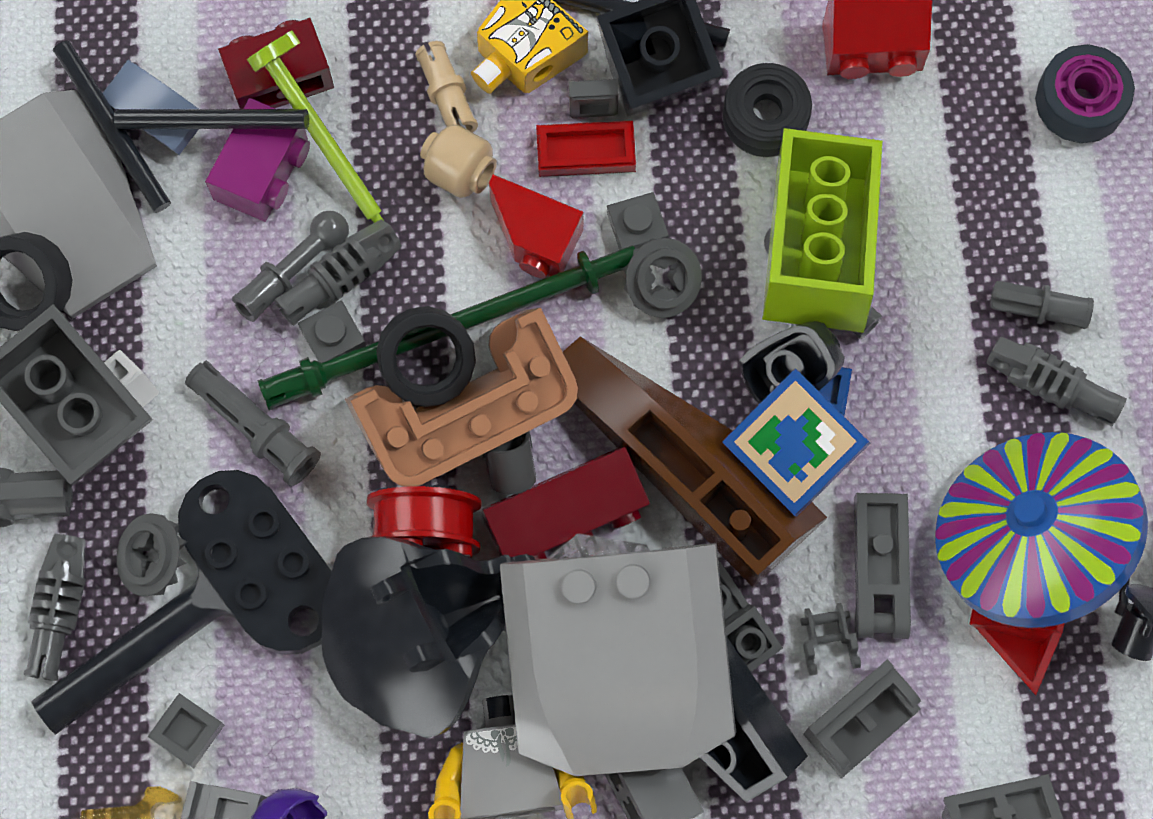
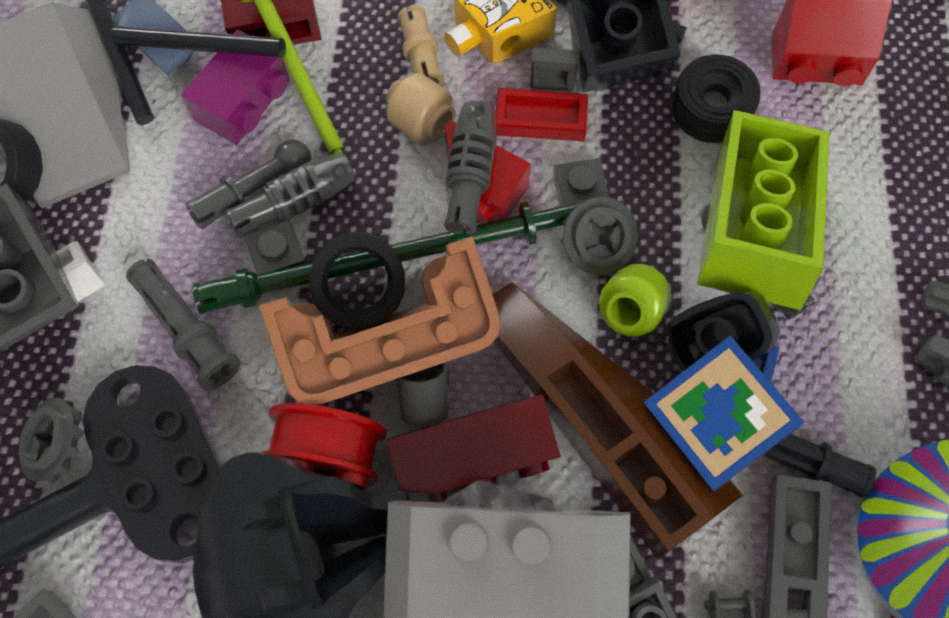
camera: 10 degrees right, 5 degrees down
(523, 222) = (470, 164): none -> dark grey hinge
(705, 340) = (635, 300): none -> lime head
(899, 476) = (824, 464): none -> black axle

